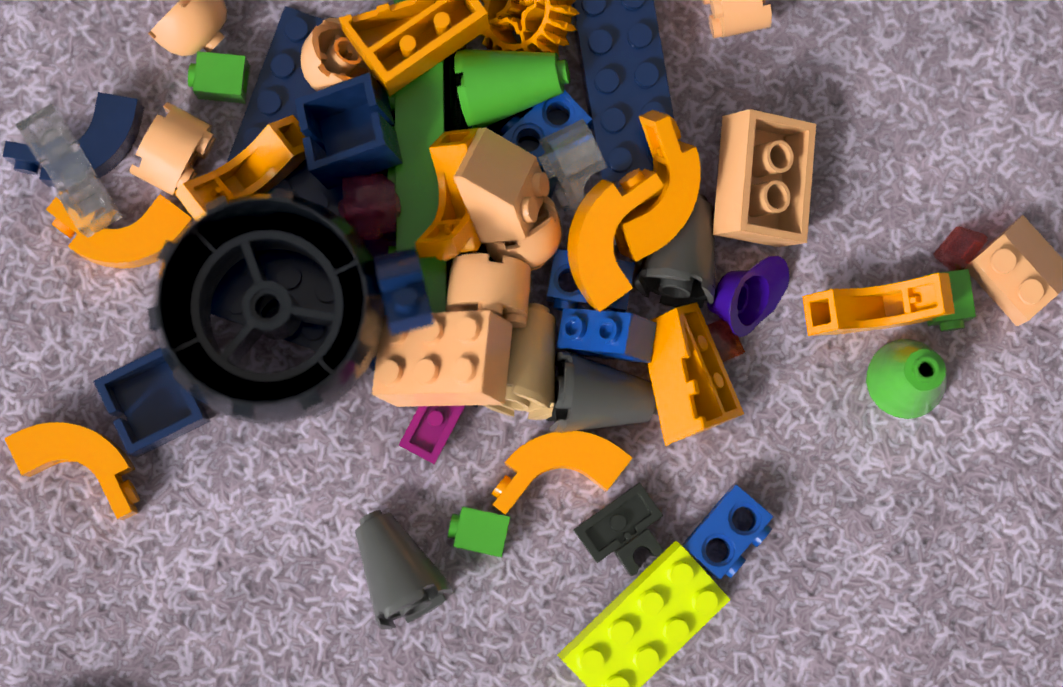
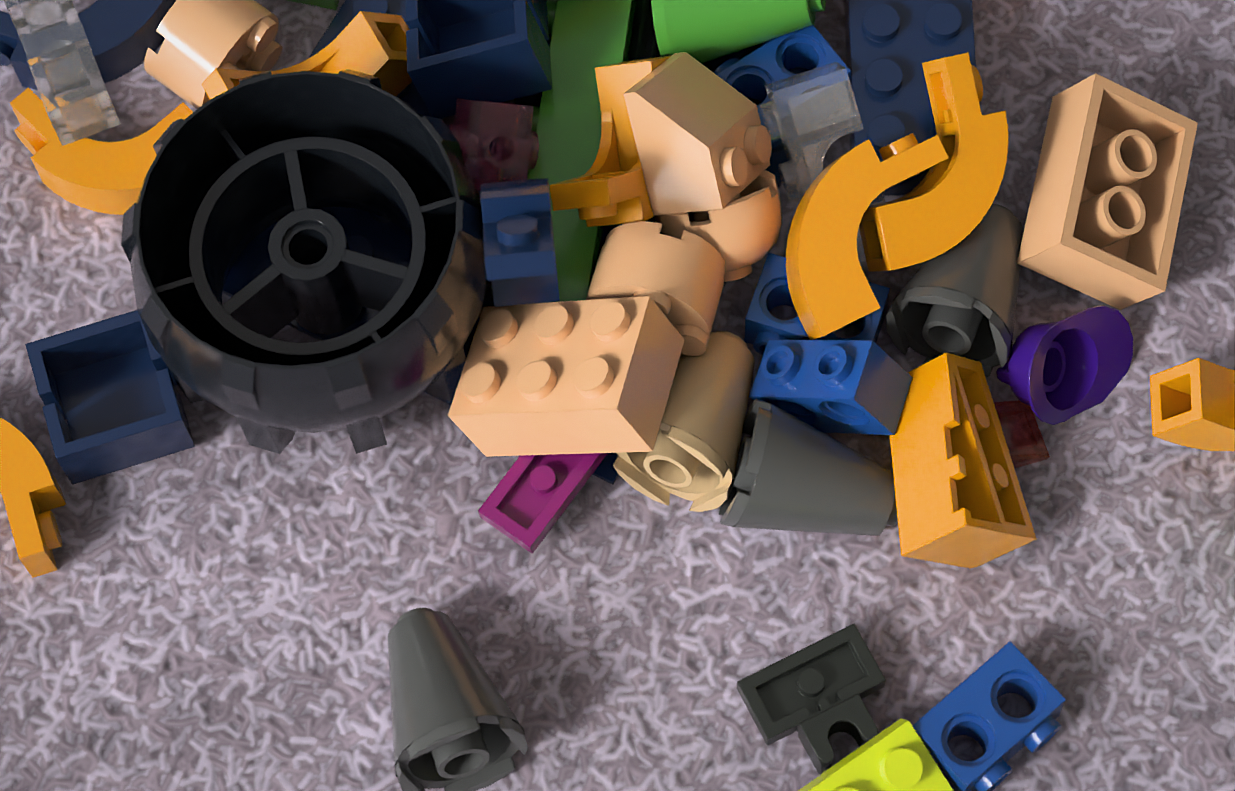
camera: 20 degrees right, 15 degrees down
(479, 531) = (586, 665): bright green brick -> none
(572, 450) = (735, 559): light orange arch -> none

